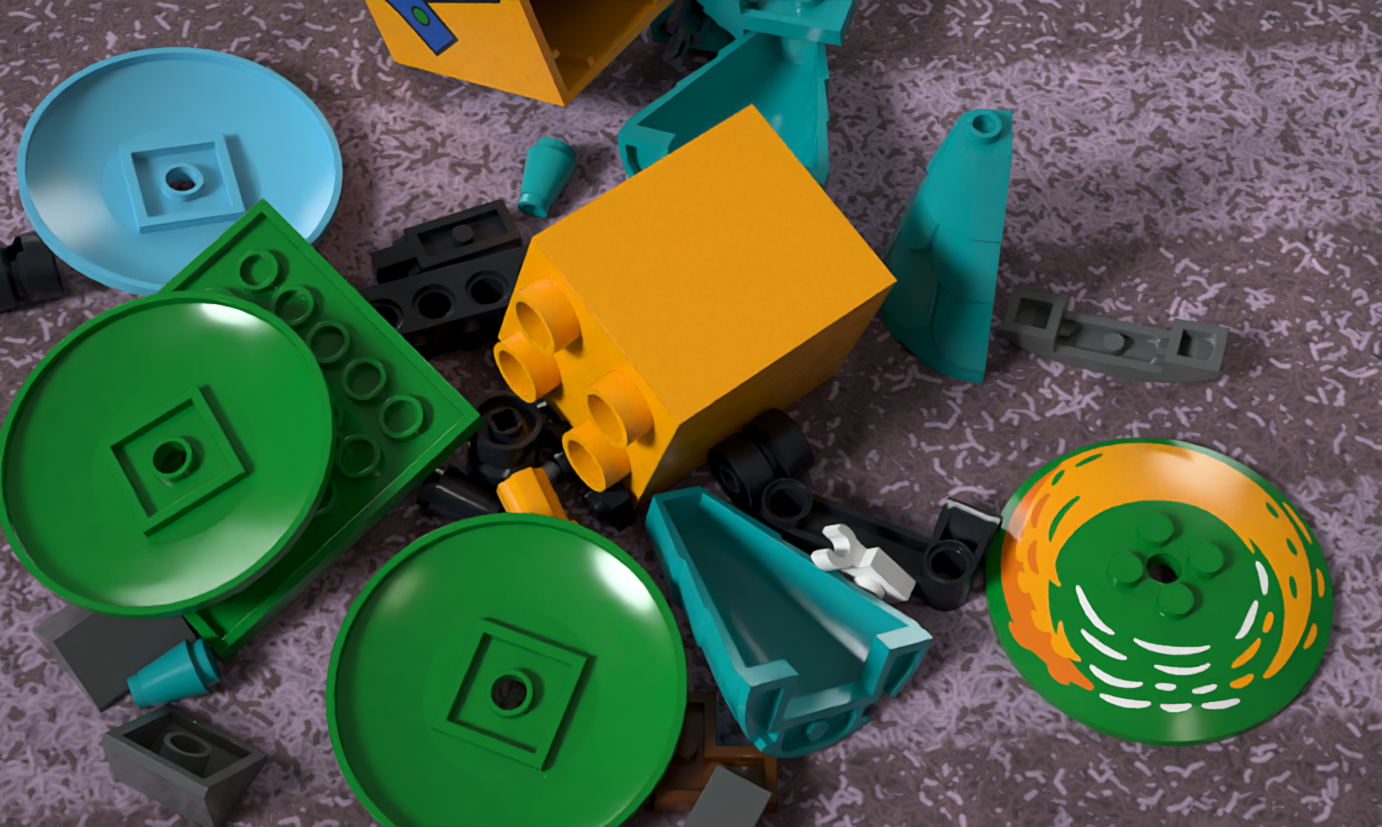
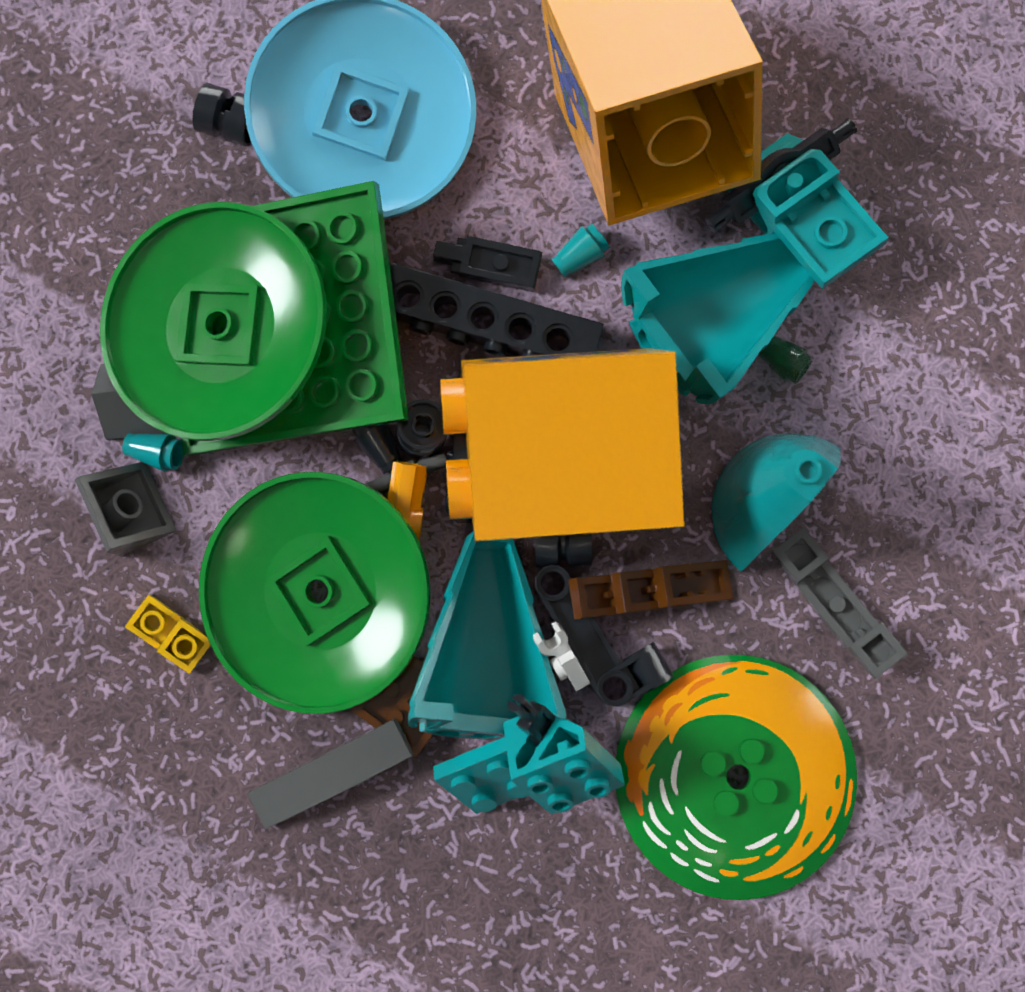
camera: 45 degrees right, 25 degrees up
(857, 149) = (786, 359): none -> clear green cone
(901, 449) = (650, 589): none -> reddish brown slope
(933, 658) = (537, 758): none -> teal piece

